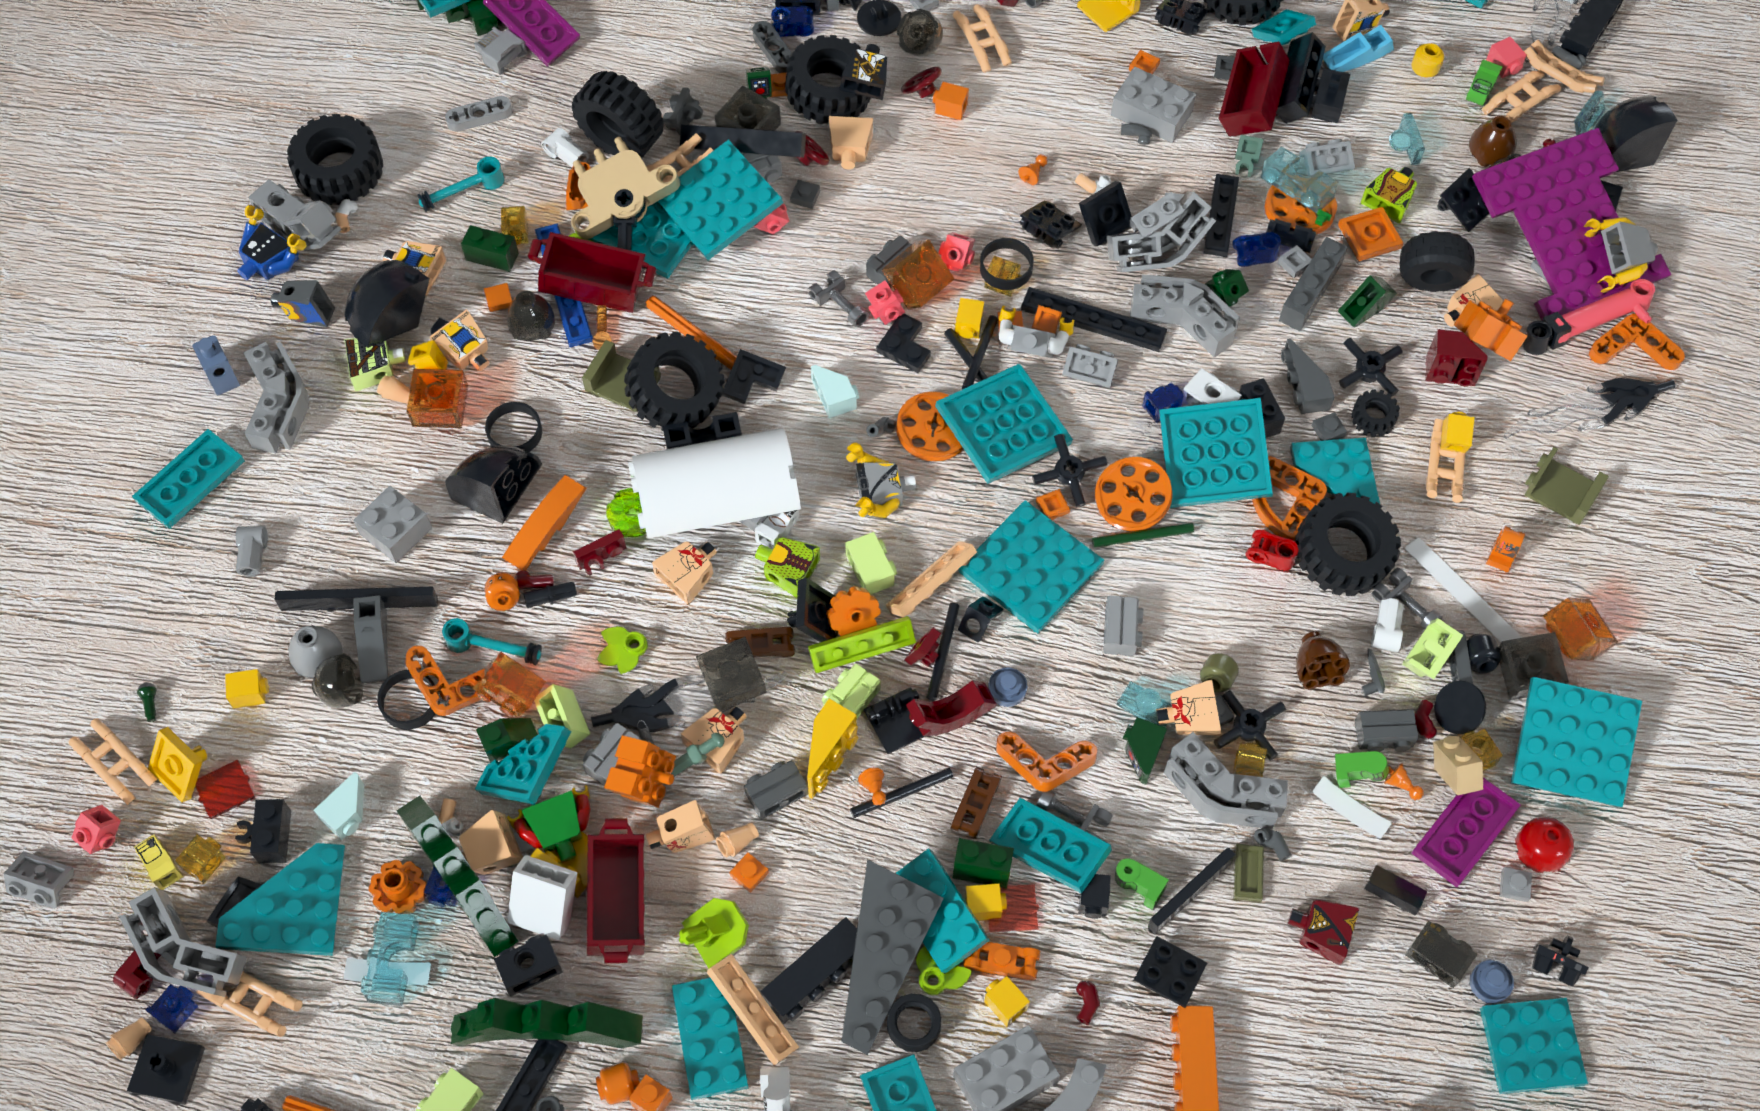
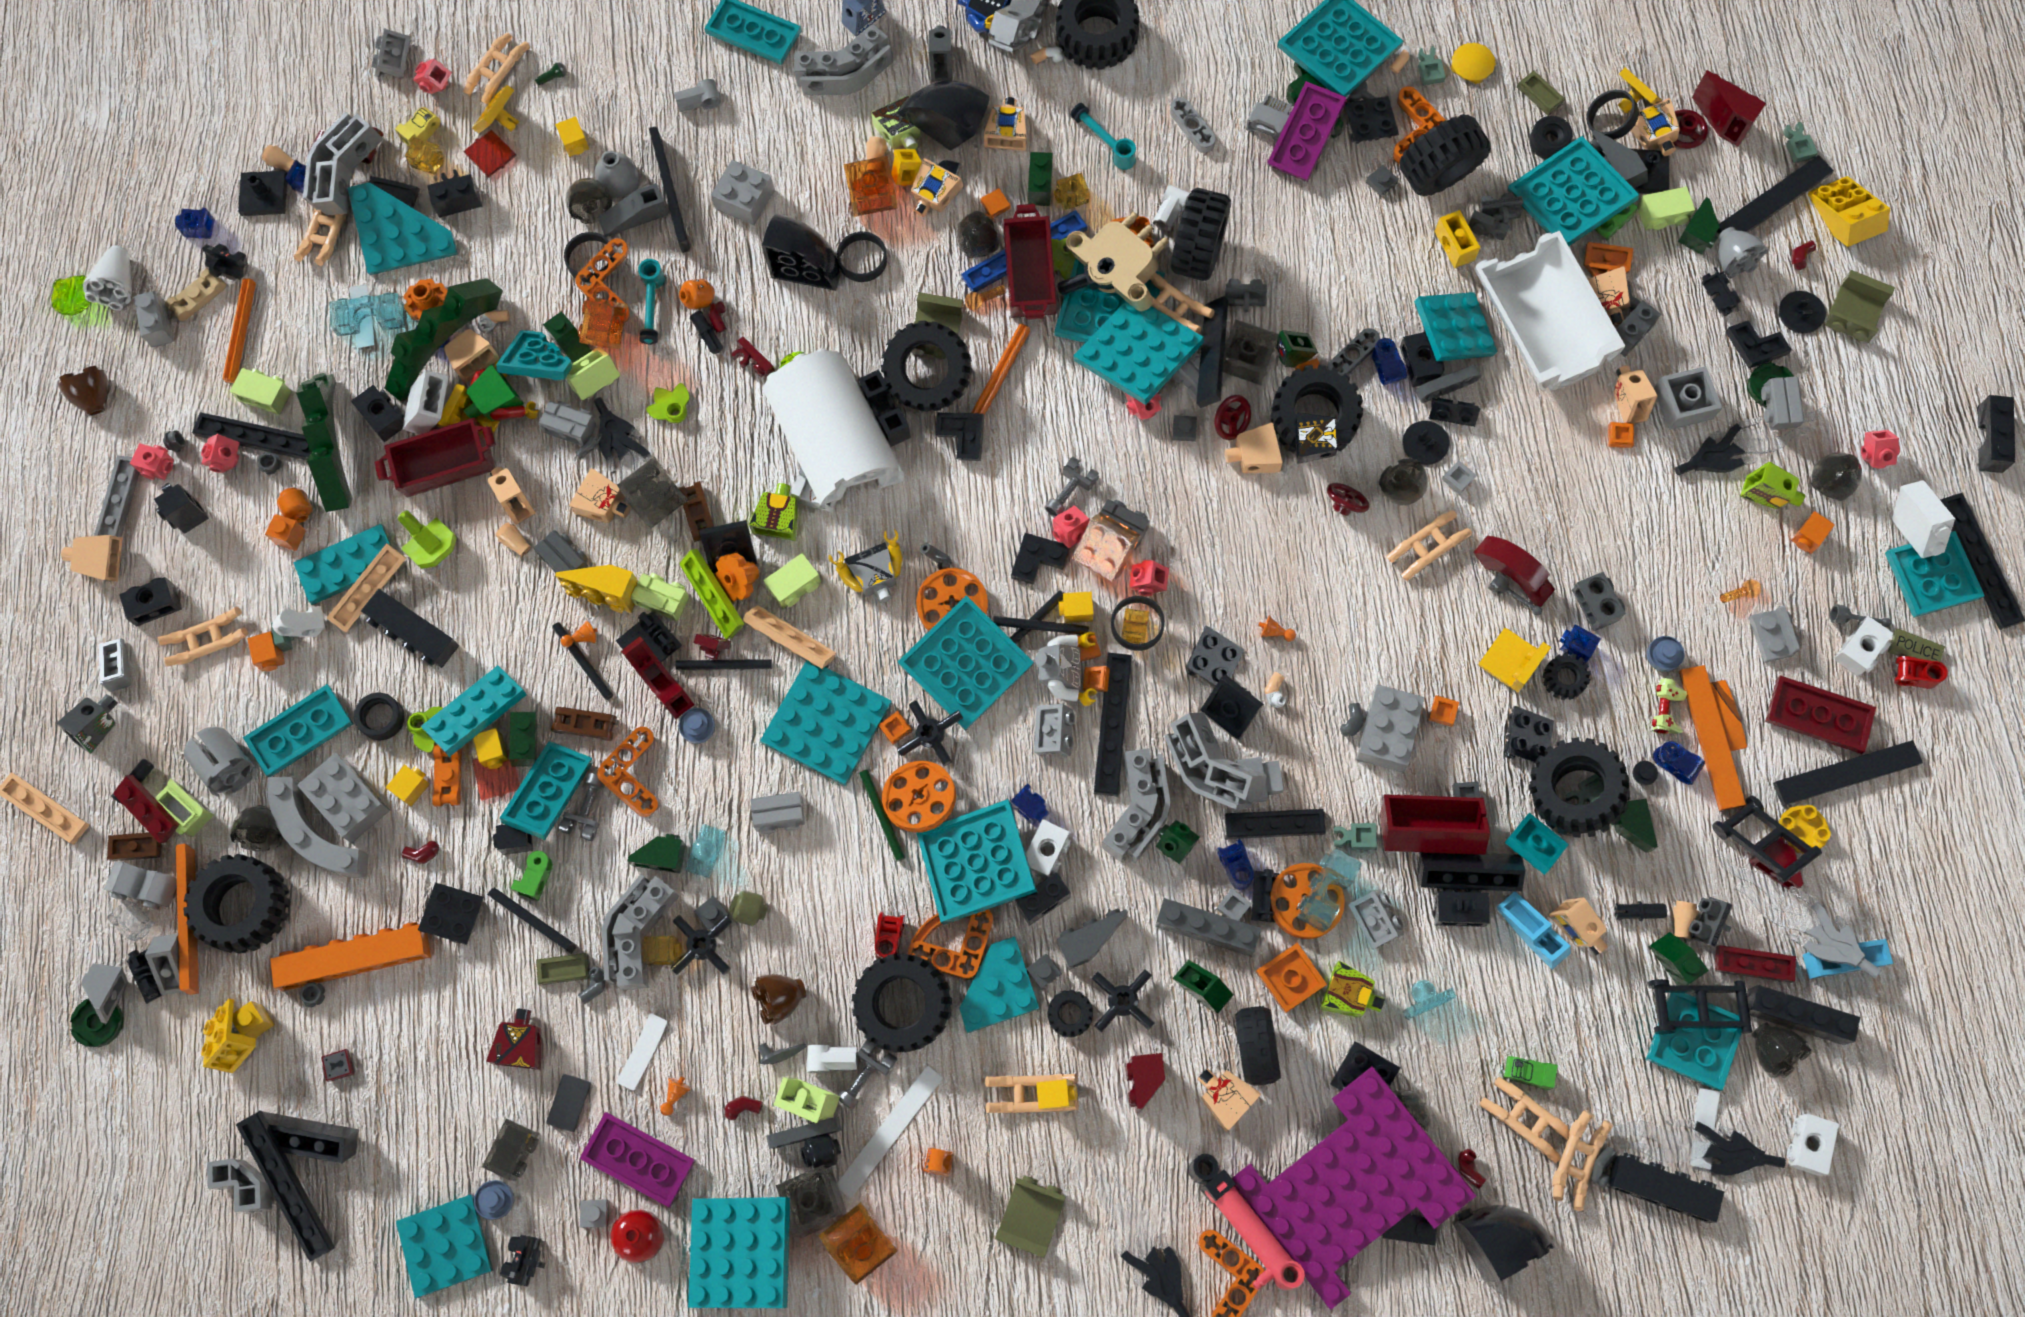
camera: 80 degrees right, 10 degrees up
(343, 807) = (484, 241): light aqua slope -> none
(543, 522) = (771, 306): orange slope -> none
(641, 771) = (545, 444): orange brick -> none
(685, 569) = (752, 432): light nougat torso -> none
(697, 753) = (570, 481): sand green sword -> none
(749, 872) = (489, 557): orange plate -> none
(834, 391) = (964, 507): light aqua slope -> none
(888, 936) = (437, 674): dark grey wing -> none
(951, 100) = (1334, 532): orange brick -> none
(983, 611) = (764, 688): black bracket -> none
(1156, 215) = (1223, 749): light grey bracket -> none
(1192, 711) = (697, 889): light nougat torso -> none
(1322, 217) = (1290, 922): green piece -> none
(1360, 766) = (676, 1044): bright green leg -> none
(1386, 730) = (721, 1071): dark grey brick -> none
(1427, 60) = (1548, 1009): yellow head -> none
(1458, 765) = (689, 1139): tan brick -> none
(1460, 707) = (755, 1136): black piece -> none
(1483, 741) = (705, 1164): clear yellow brick -> none
(1492, 328) = (1184, 1111): orange brick -> none
(1493, 141) = (1440, 1096): reddish brown piece -> none
(1508, 55) = (1577, 1095): coral brick -> none
(1590, 113) = (1524, 1197): clear light blue tile -> none
(1626, 247) = (1326, 1247): light grey torso -> none

